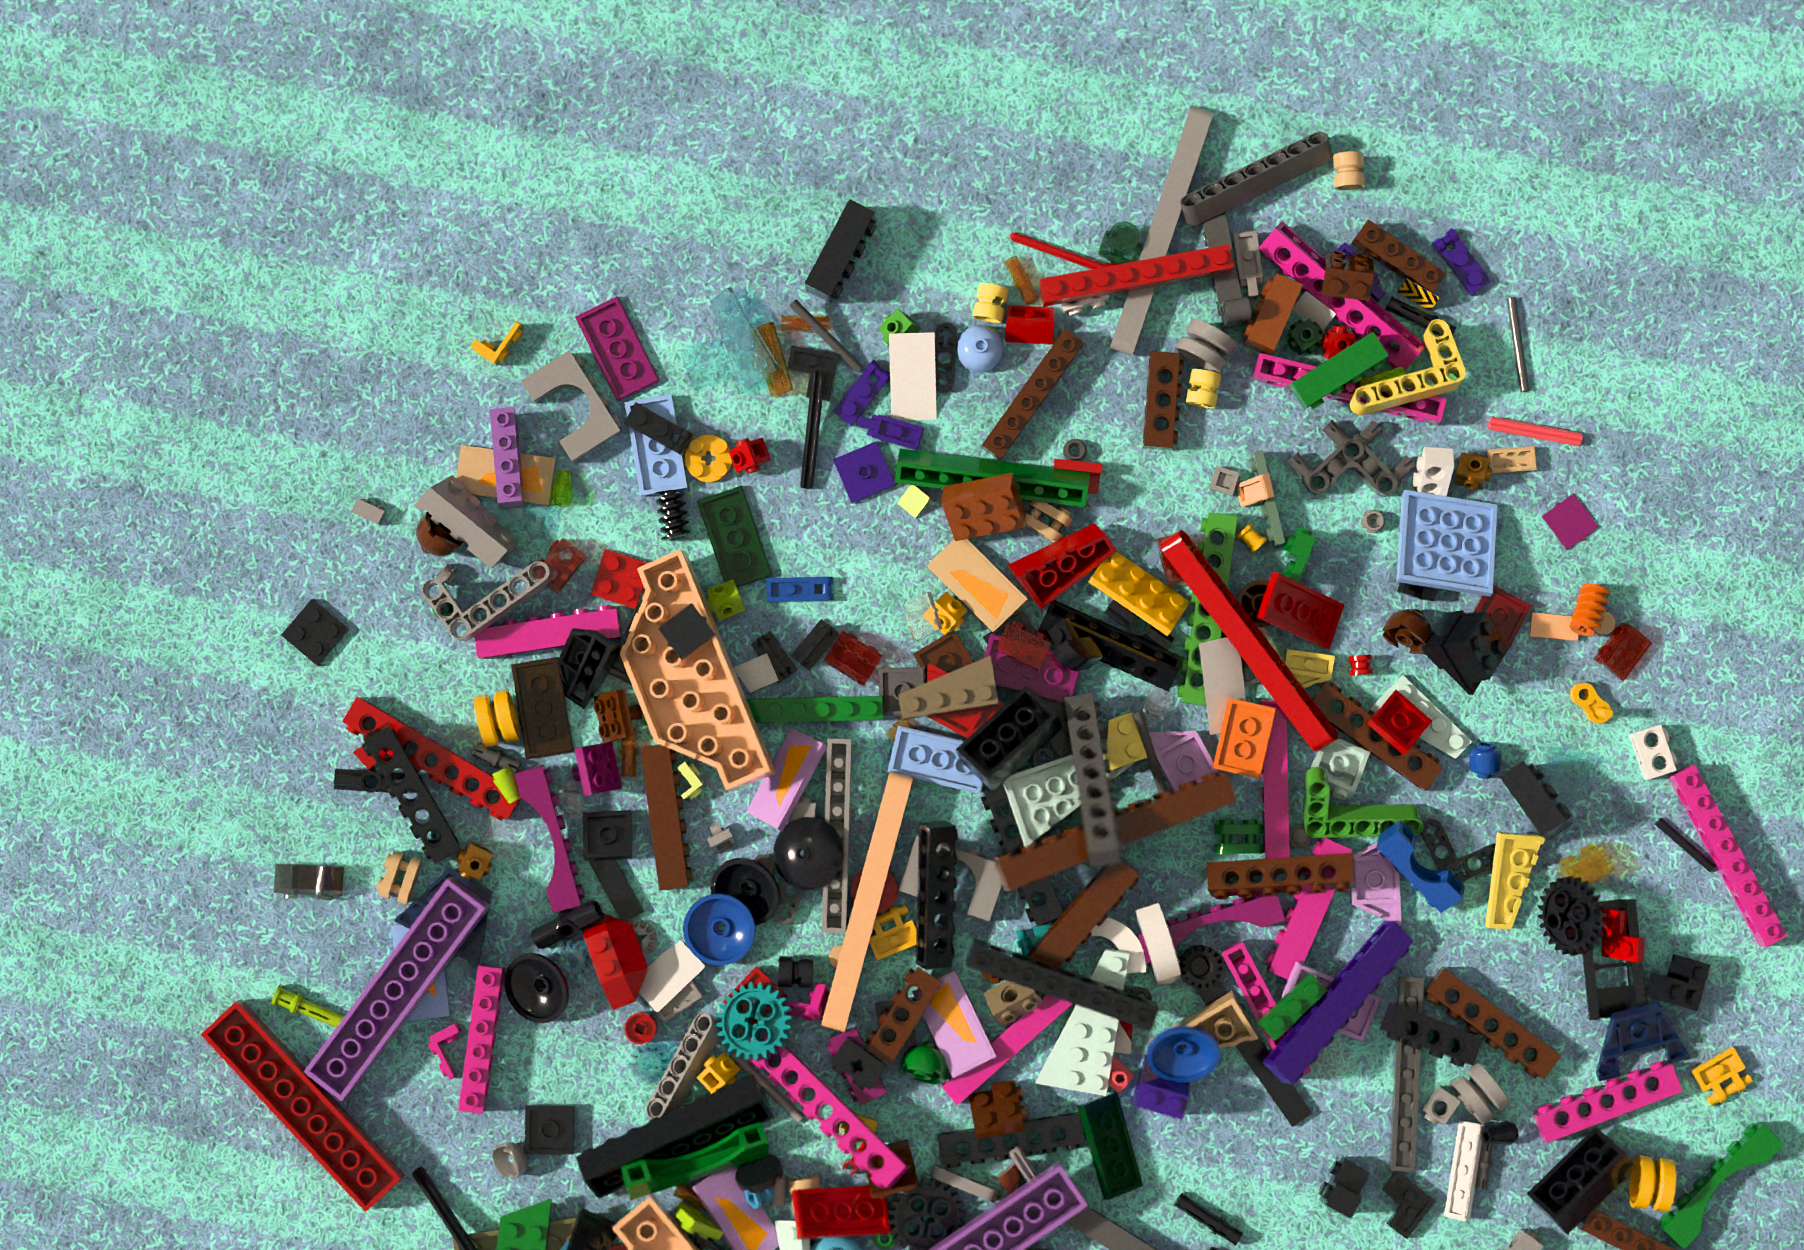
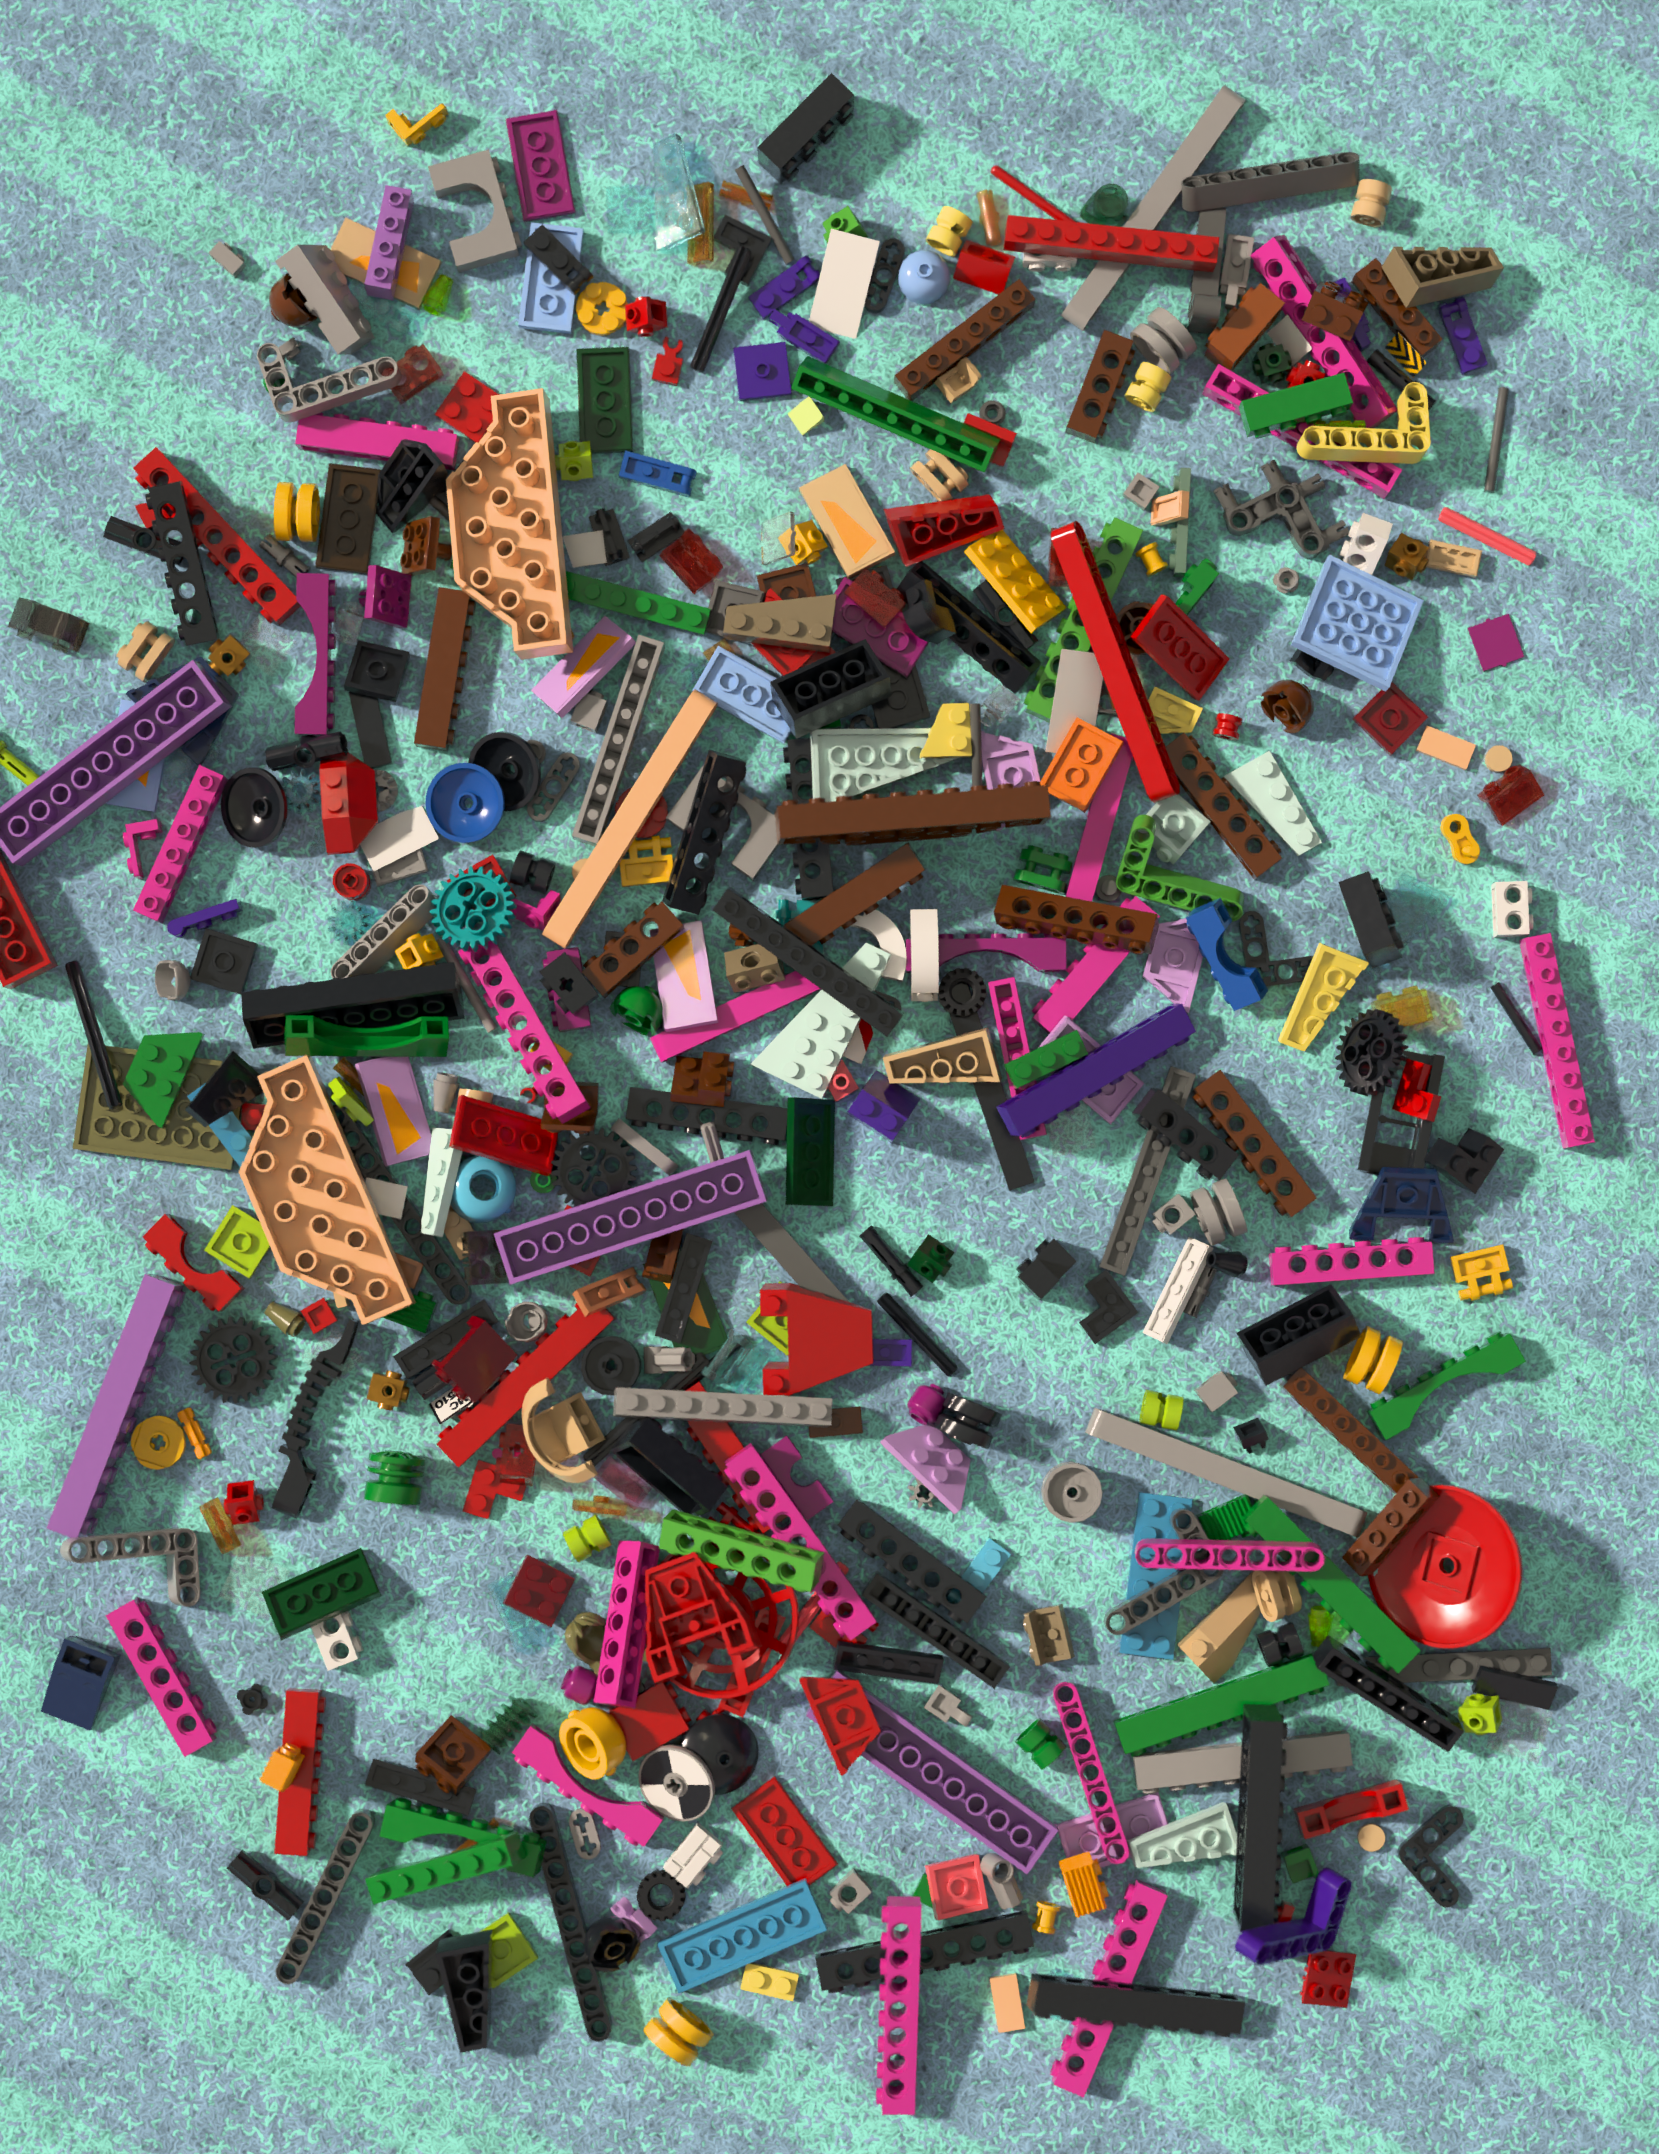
camera: 15 degrees right, 0 degrees up
(315, 632) = (133, 369): black plate -> none
(507, 784) = (286, 581): lime cone -> none
(521, 1097) = (203, 918): none -> dark purple plate
(629, 755) = (425, 593): clear orange pin -> none
(673, 514) = (545, 354): black piece -> none
(686, 631) = (523, 475): black piece -> none
(691, 773) = (484, 633): yellowish green bracket -> none
(721, 839) = (495, 711): light grey tile -> none
(756, 1200) = (424, 1093): dark azure wheel -> none
(759, 1174) = (430, 1071): black tile -> none
(780, 493) = (668, 366): none -> red plate
(823, 851) = (596, 755): black dish -> none
(983, 507) = (876, 440): dark orange brick -> none
(1010, 1178) = (694, 1154): dark orange brick -> none
(1037, 430) = (958, 380): none -> tan bracket
(1092, 780) = (903, 752): dark grey brick -> none
(1183, 1054) = (914, 1082): blue dish -> none
(1243, 1207) = (931, 1259): none -> dark green brick
(1399, 722) = (1250, 796): red plate -> none
(1424, 220) = (1440, 274): none -> dark tan wedge
(1466, 648) = (1344, 738): black piece -> none
(1485, 759) = (1329, 865): blue head -> none
(1589, 609) = (1488, 738): orange piece -> none

